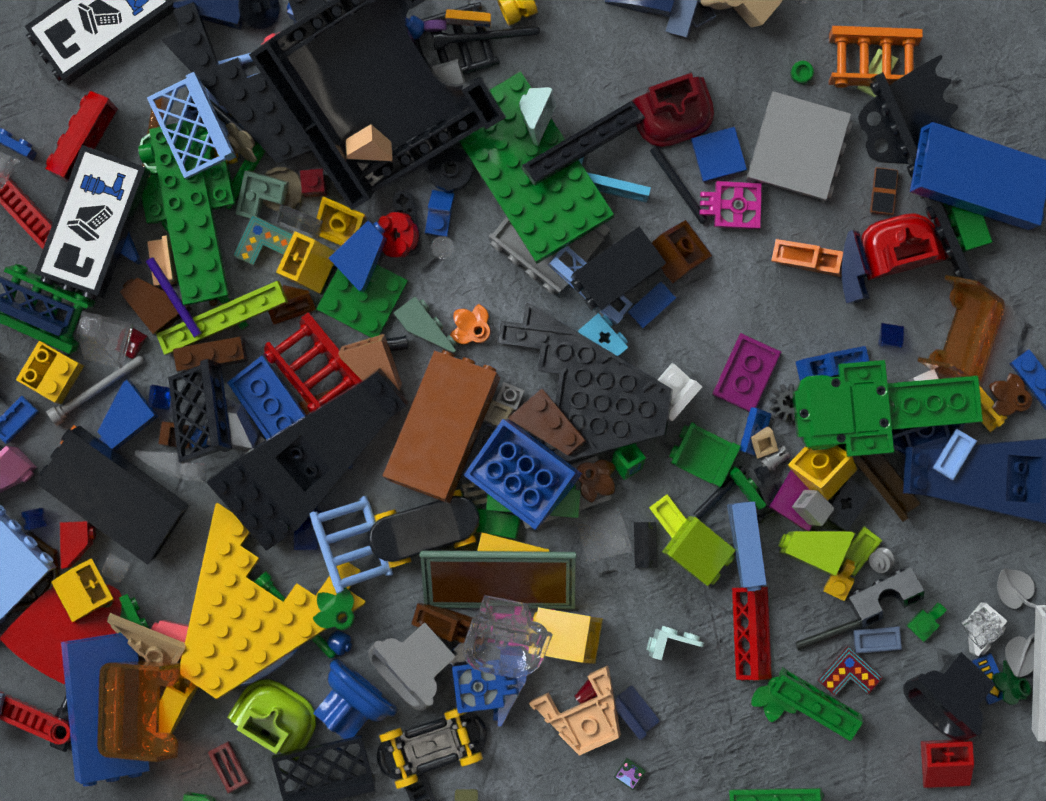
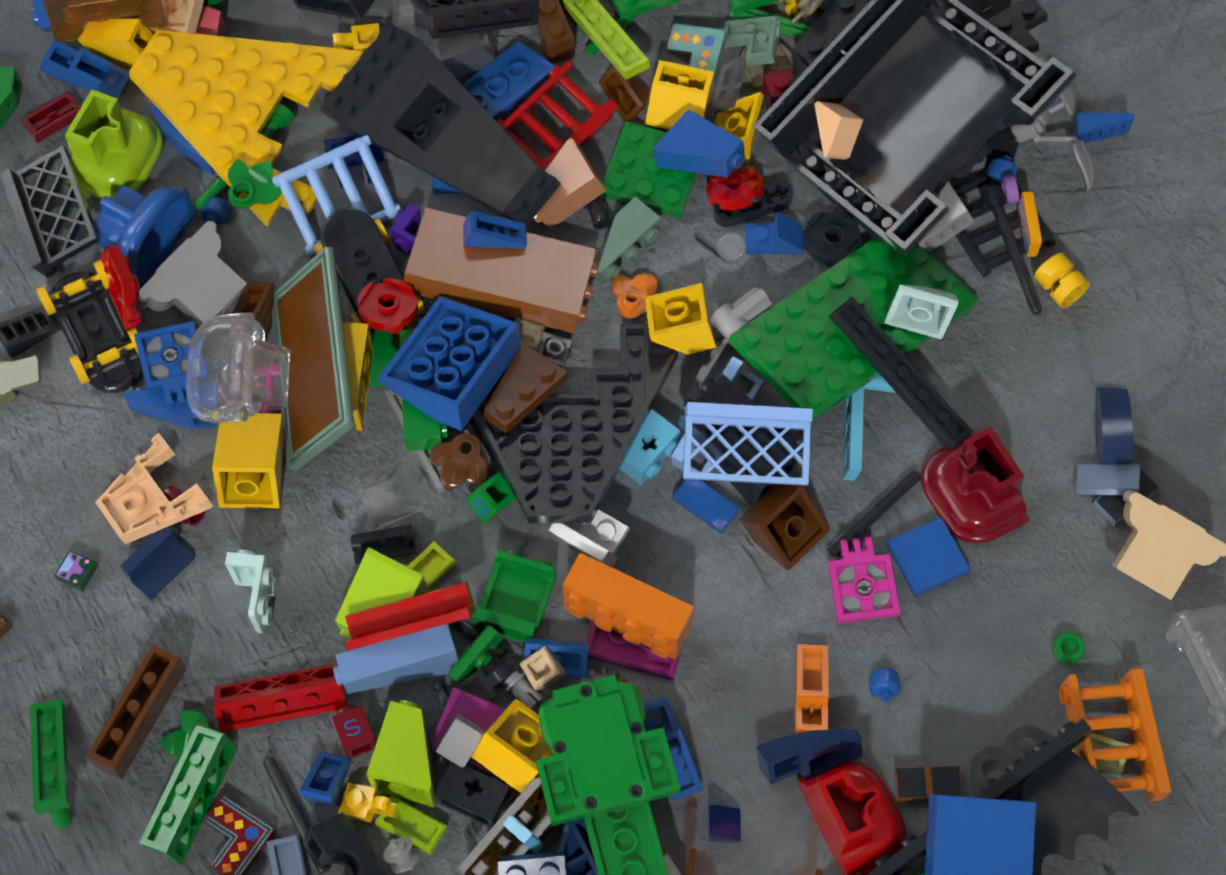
camera: 80 degrees right, 20 degrees down
(193, 735) = (84, 69): none -> blue slope
(202, 507) = (360, 38): none -> yellow plate
(381, 495) = (404, 227): none -> dark purple bracket
(414, 440) = (484, 229): none -> blue slope
(421, 717) = (122, 286): none -> red plate
(453, 520) = (387, 318): none -> red plate
(506, 296) = (681, 319): none -> yellow slope
(516, 254) = (733, 317): none -> light grey piece
(614, 261) = (741, 417): none -> light blue fence
(722, 530) = (409, 615): none -> red fence
(735, 373) = (627, 607): none -> orange brick
(752, 736) = (136, 712): none -> reddish brown brick
(787, 582) = (354, 731): none -> dark red brick
(799, 146) = (962, 656): light grey panel -> none
(806, 206) = (884, 683): none -> blue piece
(821, 606) = (325, 779): none -> blue slope
(889, 473) = (523, 834): none -> medium azure tile

